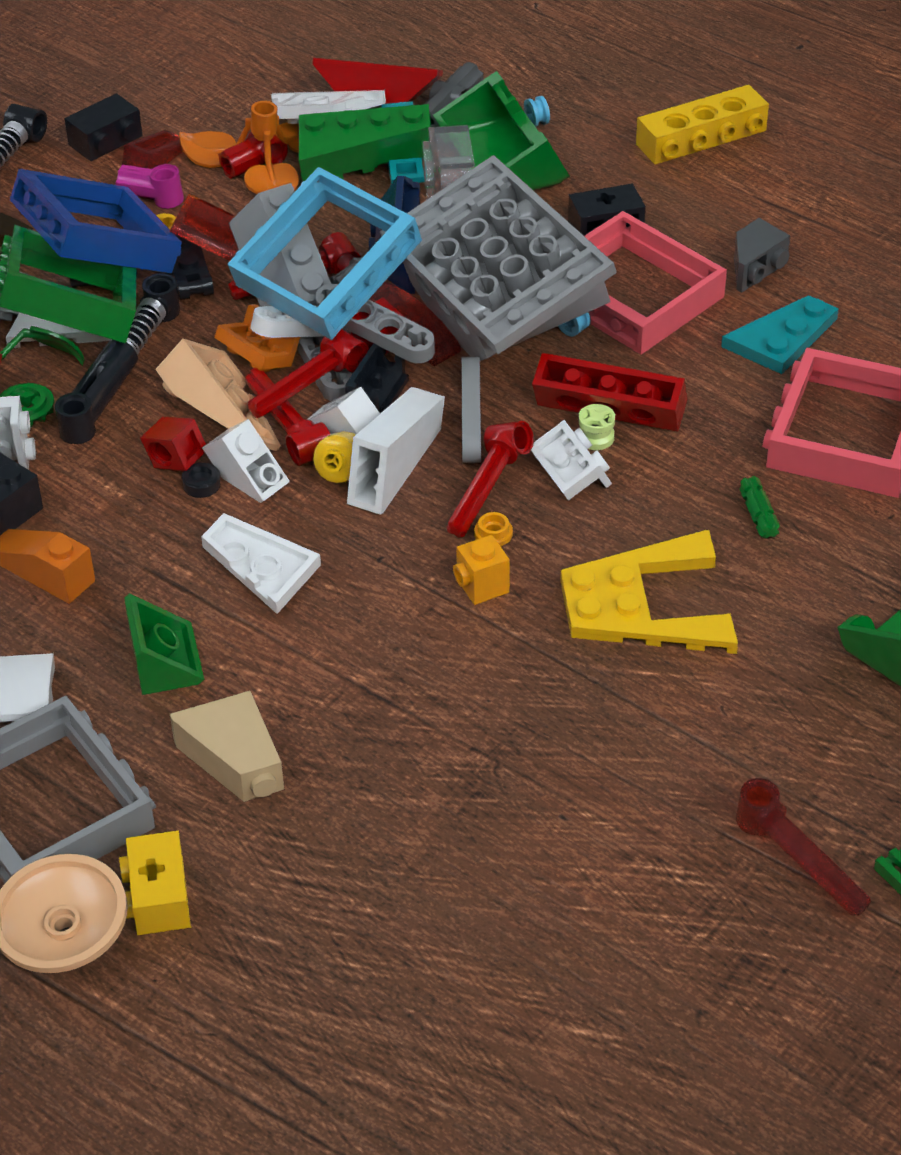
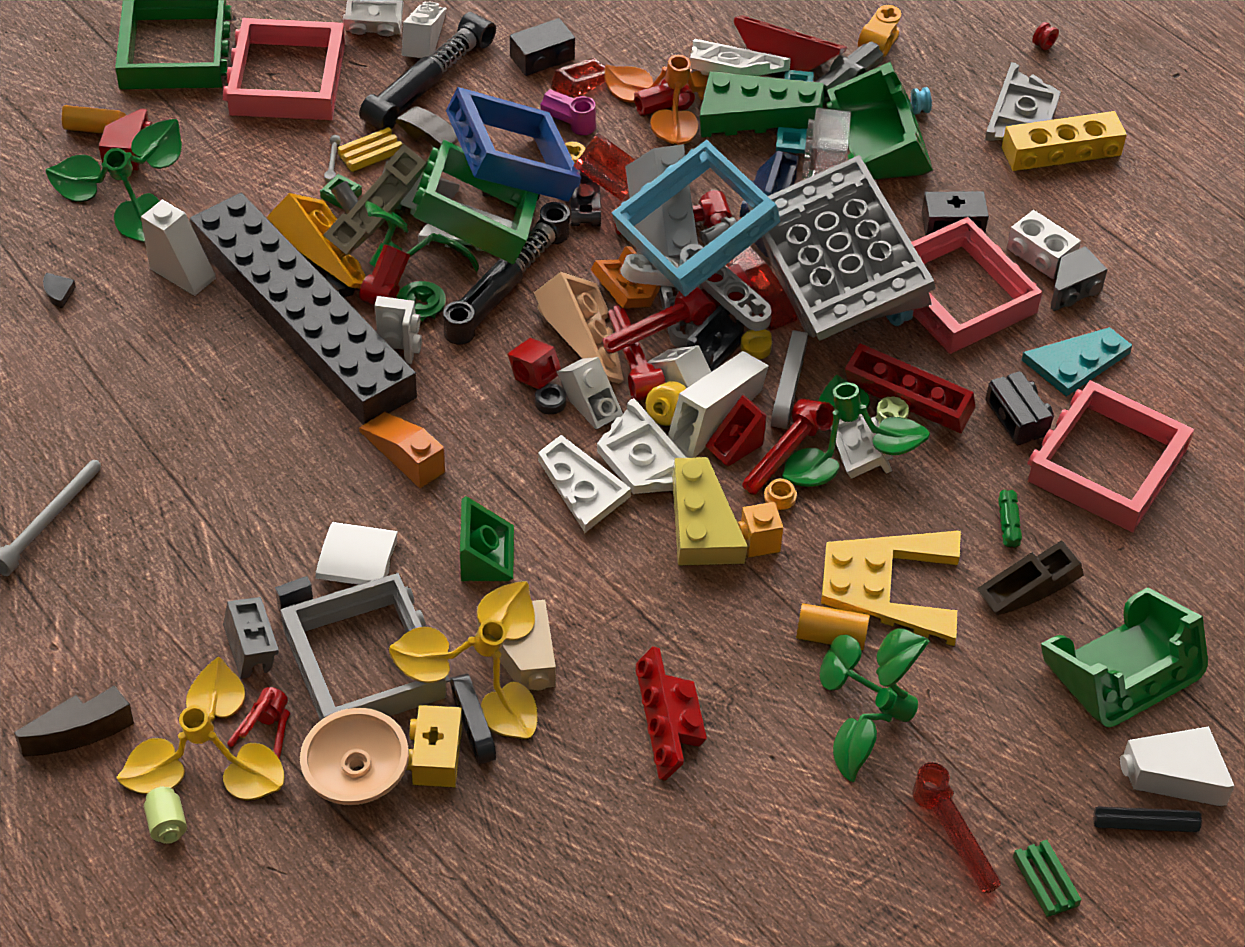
camera: 10 degrees right, 5 degrees up
(195, 843) = (473, 719): none -> black beam
(205, 716) = (502, 615): none -> yellow plant
(328, 517) = (639, 451): none -> white wing
(413, 567) = (703, 517): none -> light yellow wedge
(424, 377) = (757, 343): none -> yellow tile
(428, 788) = (670, 712): none -> red bracket
(429, 473) = (739, 432): none -> red slope
(475, 48) = (882, 28): none -> light orange piece
(545, 415) = (892, 437): none -> green plant
(593, 658) = (825, 624): none -> light orange brick
(645, 94) = (1021, 102): none -> light grey wing
(651, 29) = (1045, 36): none -> red bush
(684, 663) = (895, 658): none -> green plant
(709, 225) = (1041, 242): none -> white brick
(735, 391) = (1019, 407): none -> black brick
(804, 564) = (1032, 579): none -> dark brown slope

